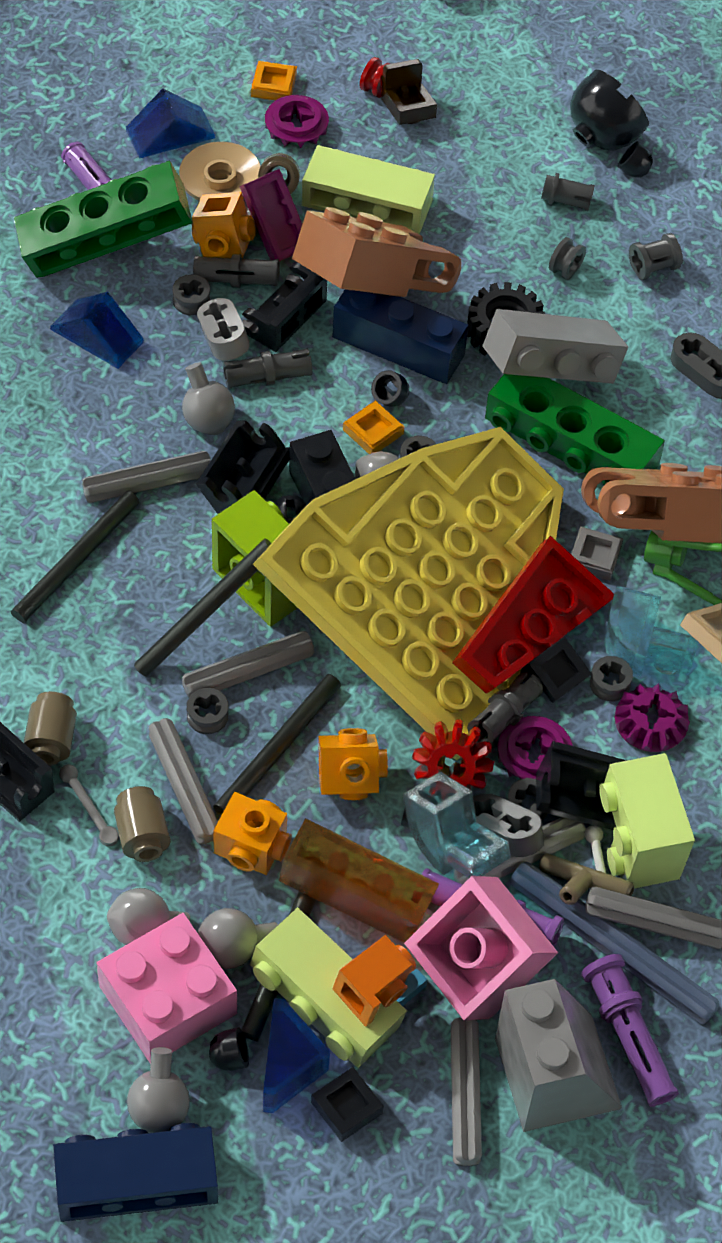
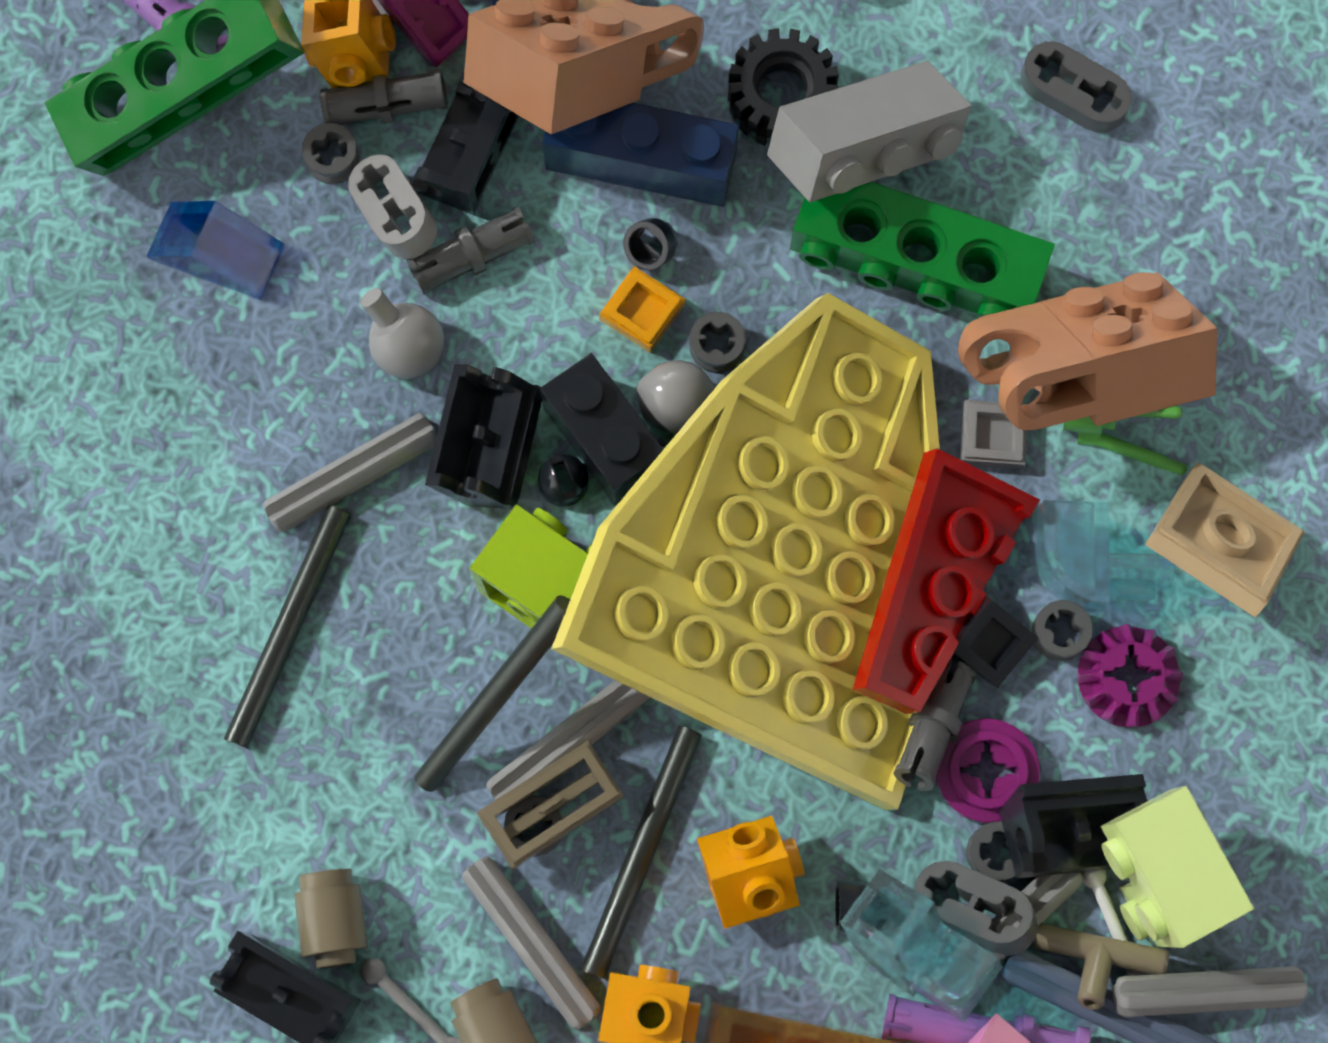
camera: 10 degrees left, 20 degrees up
(225, 699) = (503, 836): none -> dark tan tile
(449, 744) = (888, 831): red gear -> none

